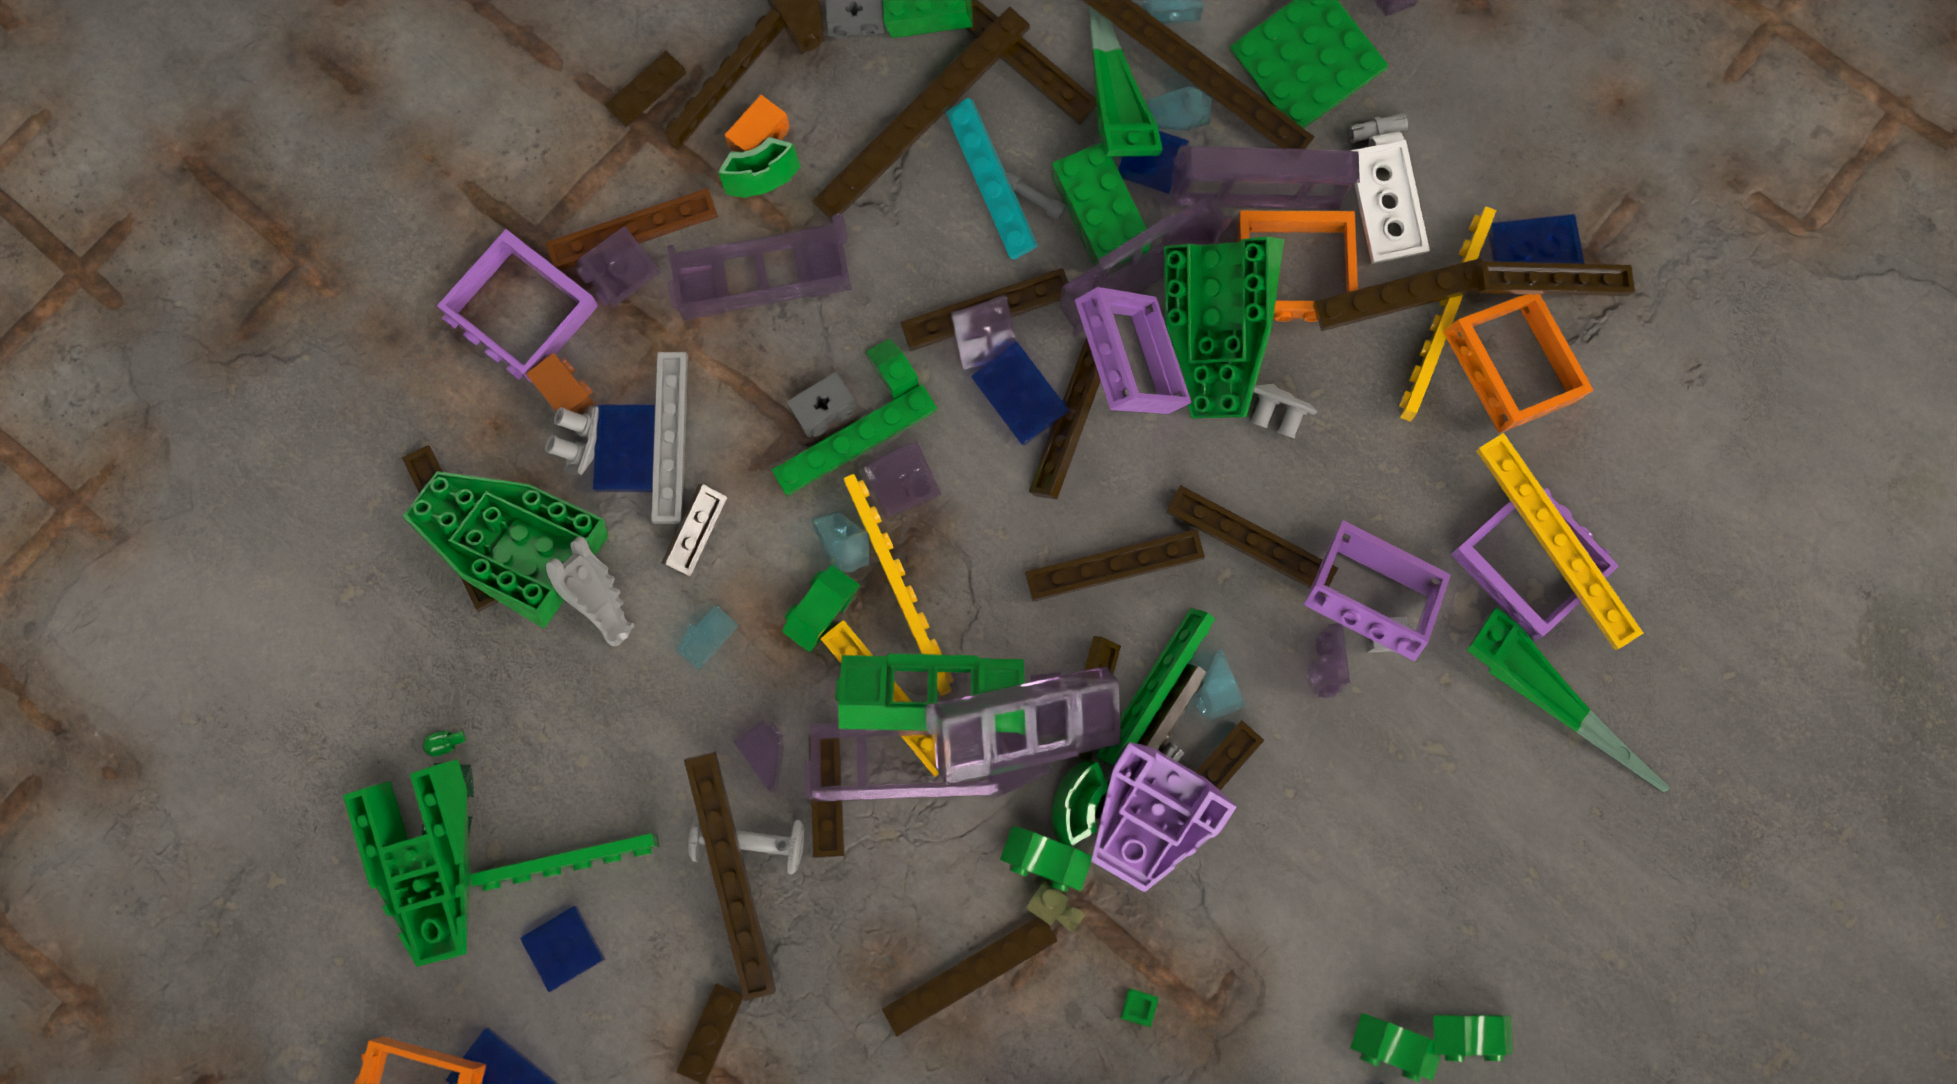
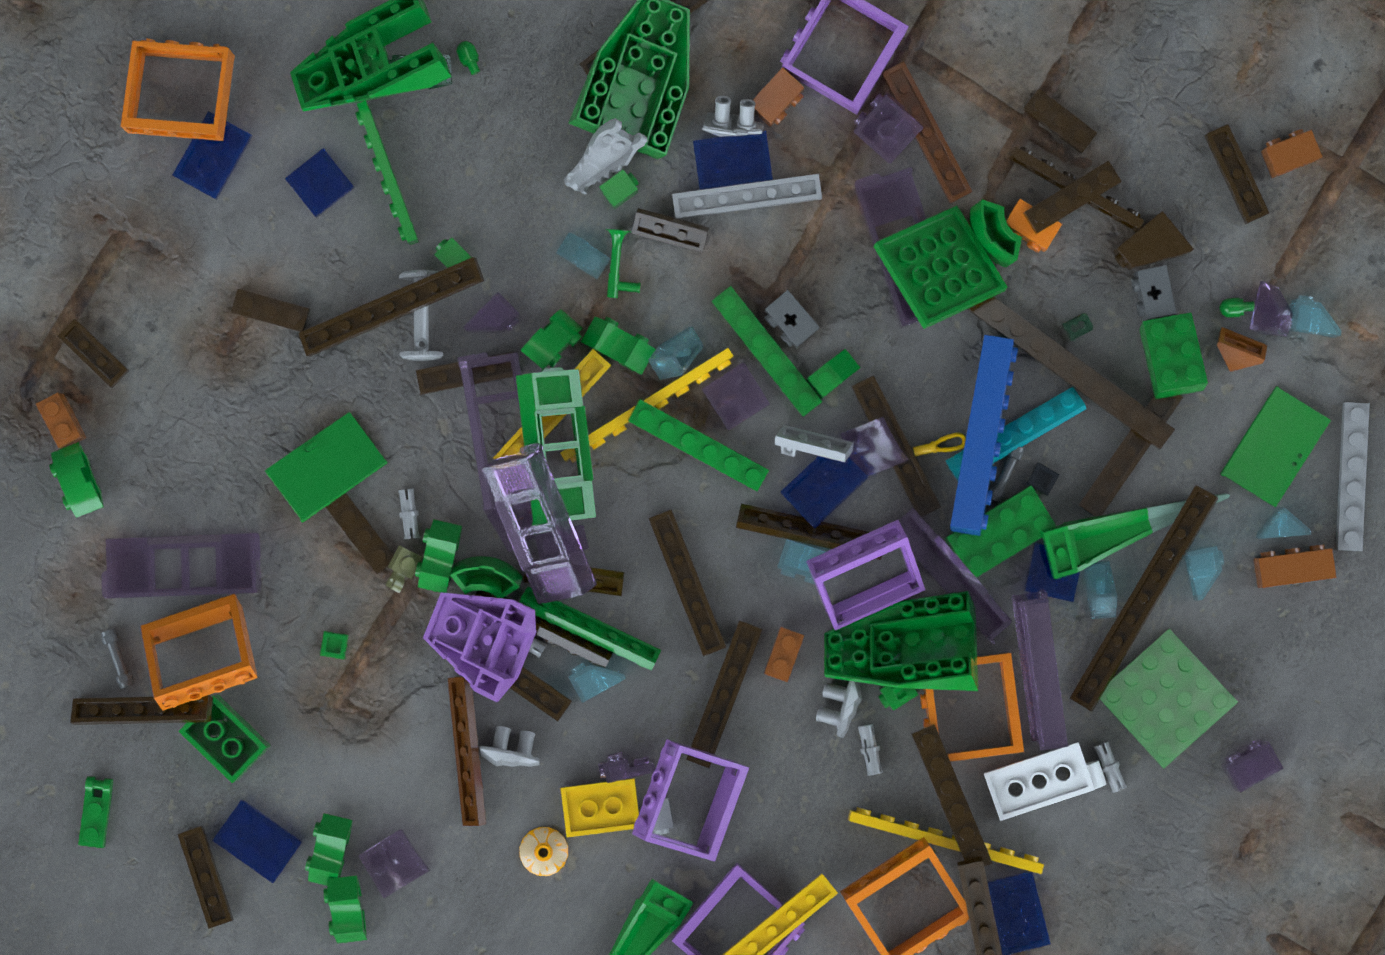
camera: 80 degrees right, 10 degrees up
(634, 582) = (619, 188): none -> green brick
(676, 794) = (450, 253): none -> green brick
(732, 78) = (1072, 197): none -> dark brown plate
(747, 605) = (614, 284): none -> green piece
(787, 228) = (940, 267): none -> green plate
(802, 683) = (553, 339): none -> green brick
(878, 109) = (1080, 332): none -> clear green piece
(916, 977) = (328, 470): none -> green container
(952, 530) = (698, 445): none -> green plate
(962, 419) = (795, 439): none -> light grey hinge
(988, 890) = (409, 514): none -> light grey pin
(989, 207) = (982, 435): none -> blue brick
(991, 270) = (933, 446): none -> yellow piece
(1042, 158) = (1042, 479): none -> black tile
(1104, 430) = (794, 559): none -> clear light blue brick
(1212, 464) = (783, 654): none -> dark orange brick
(1277, 347) = (895, 696): none -> green brick
(1290, 857) = (466, 752): none -> reddish brown plate
(1299, 815) = (500, 756): none -> light grey connector
(1333, 383) = (870, 749): none -> light grey pin
(1374, 704) = (599, 807): none -> yellow plate
(1404, 784) = (543, 838): none -> tan dish
(1419, 968) = (393, 863): none -> clear purple plate

